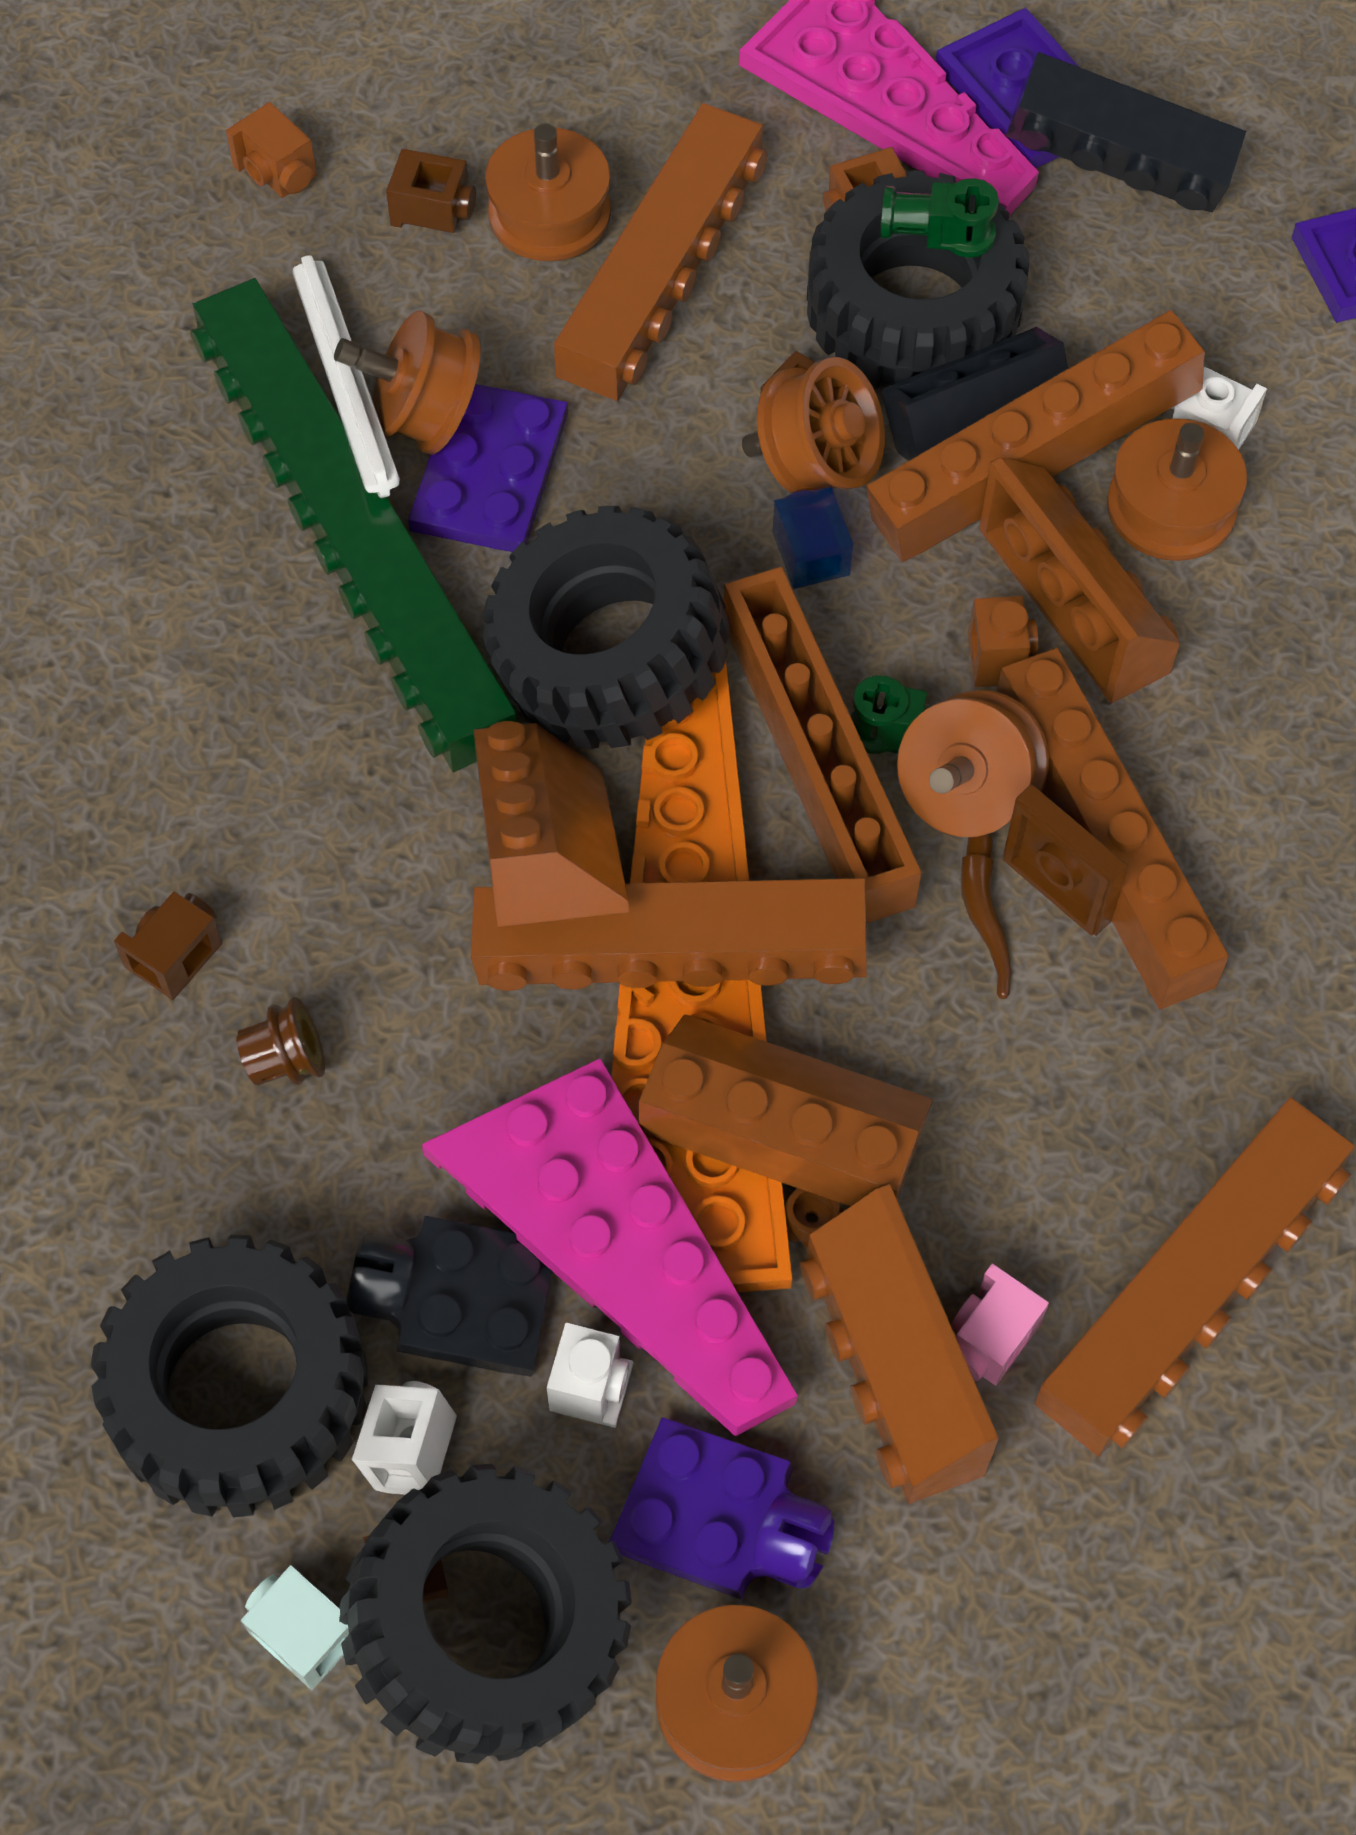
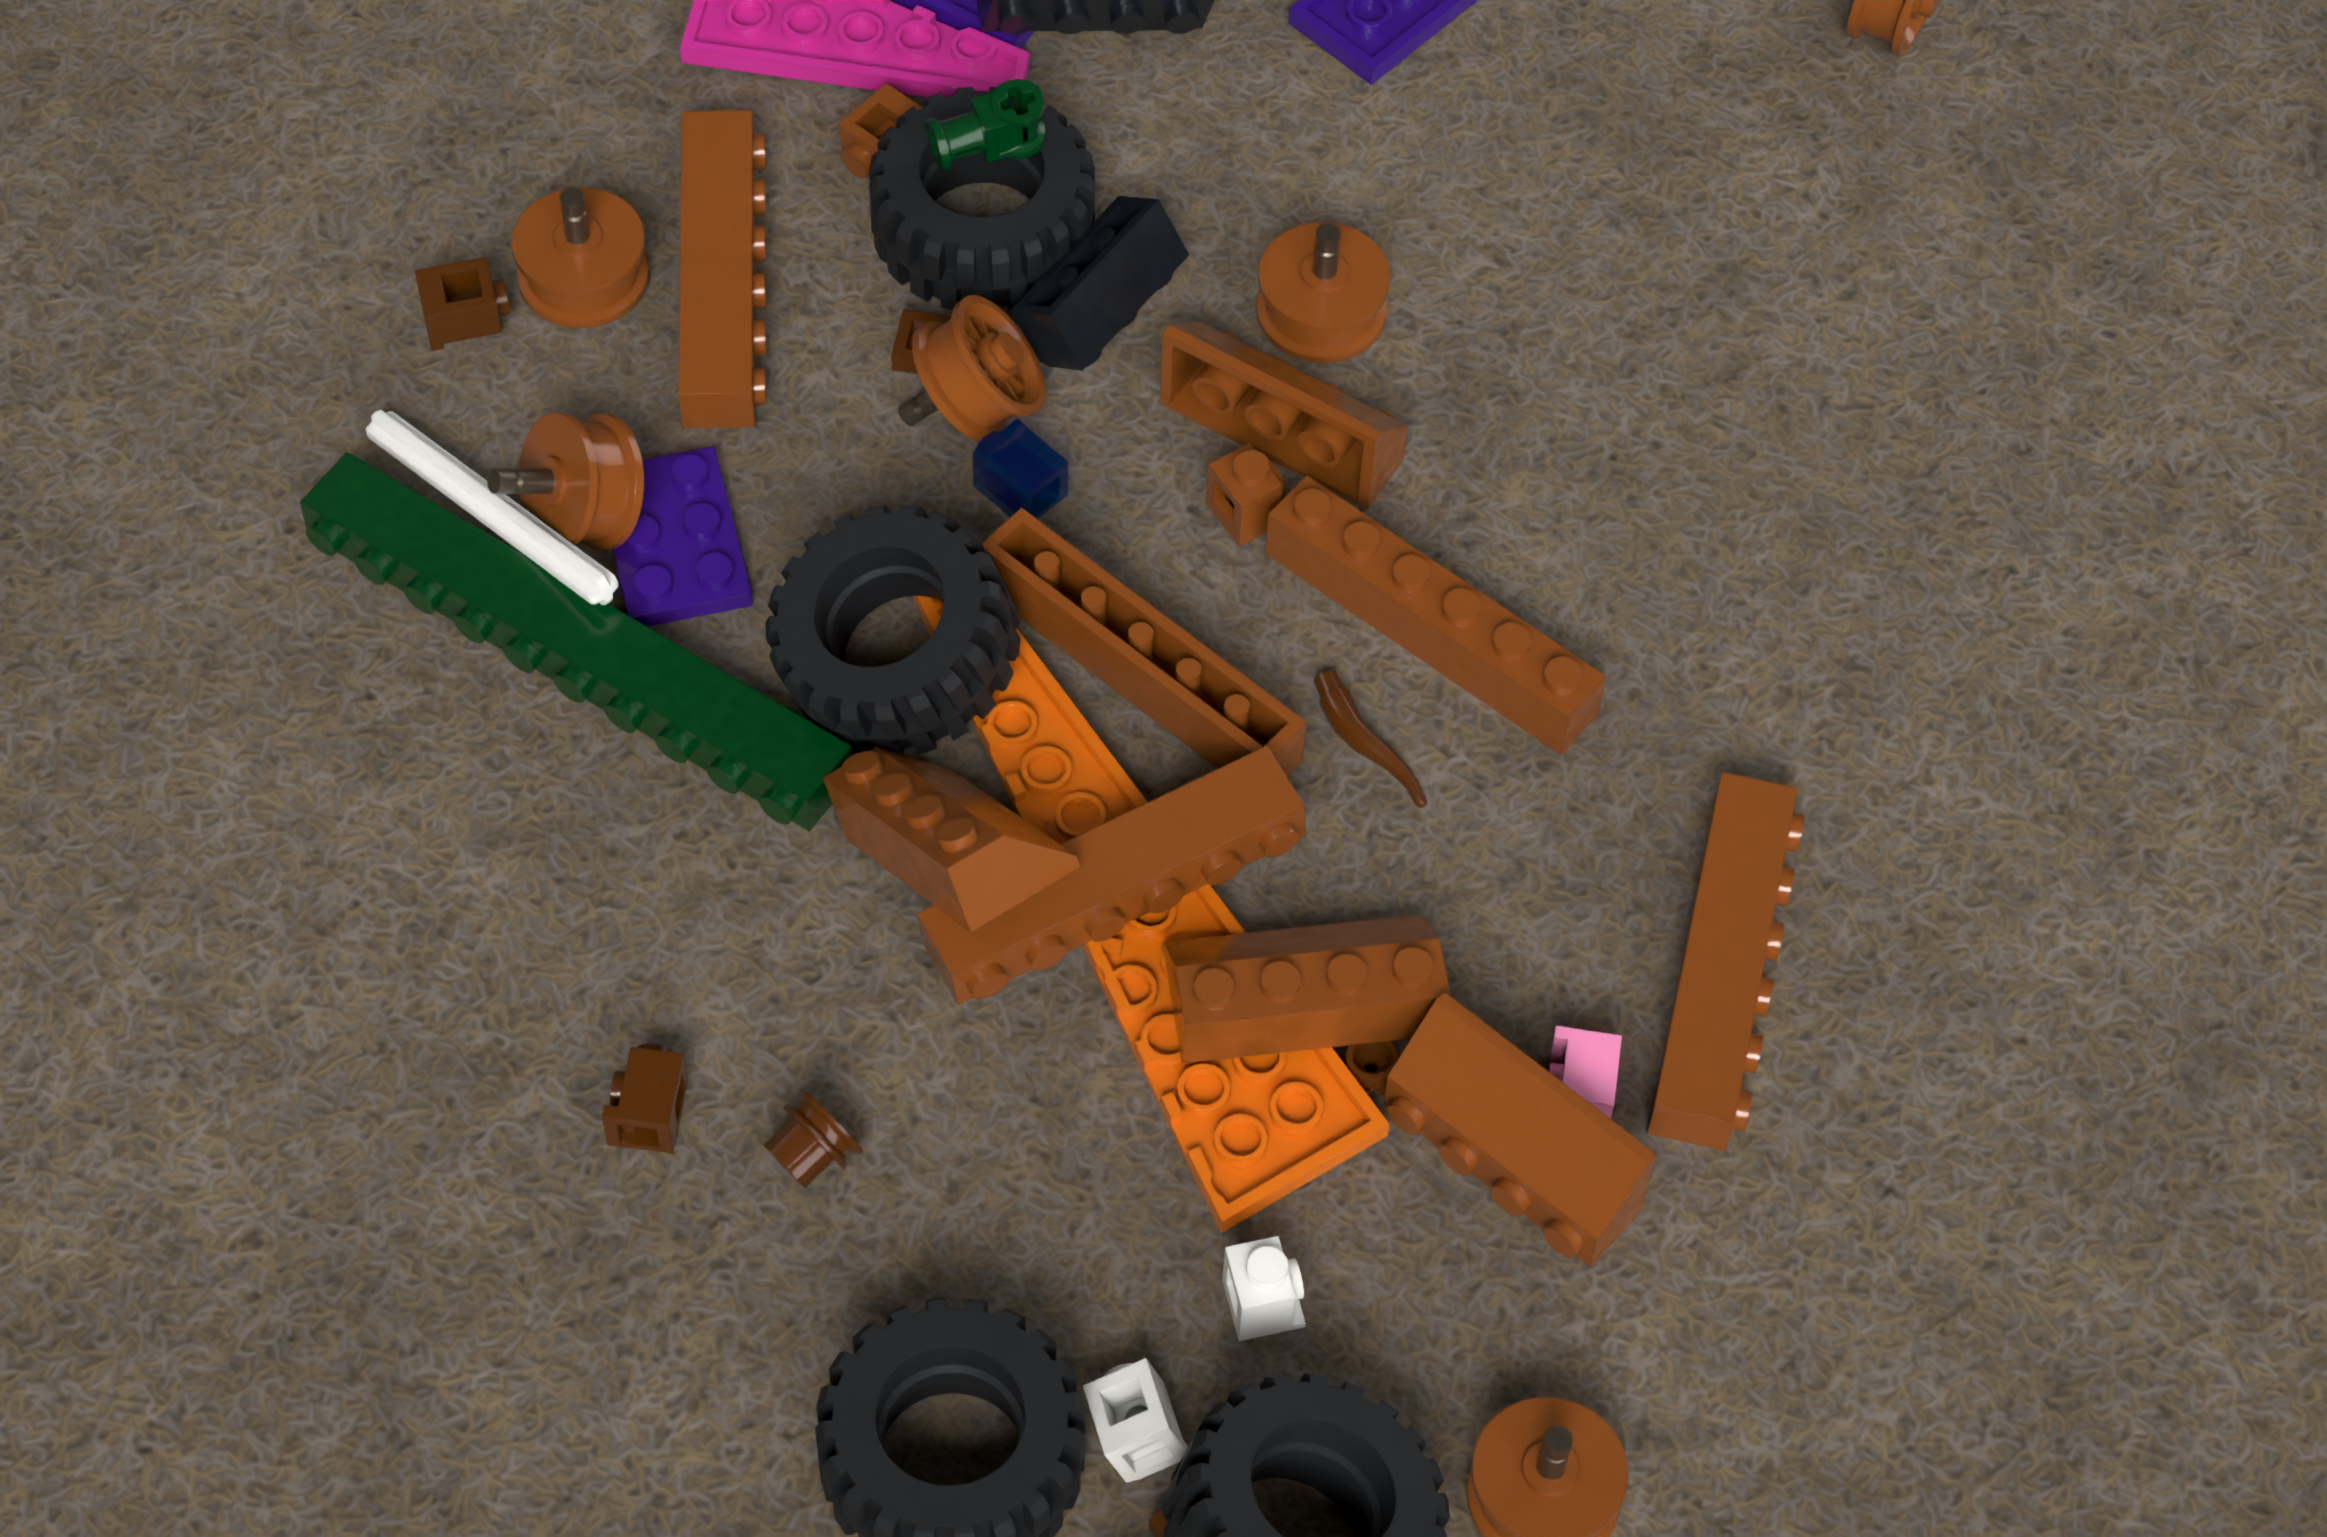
camera: 30 degrees left, 5 degrees down
(272, 151) = (278, 325): dark orange brick -> none
(455, 1294) = (1103, 1276): black plate -> none
(607, 1219) = (1204, 1149): dark pink wing -> none
(720, 1514) = (1445, 1346): dark purple plate -> none
(898, 711) = (1208, 599): dark green connector -> none
(971, 761) = (1291, 608): dark orange wheel -> none
(1044, 427) = (1179, 286): dark orange brick -> none
(1064, 861) = (1418, 659): reddish brown tile -> none
(1224, 406) = (1312, 199): white brick -> none

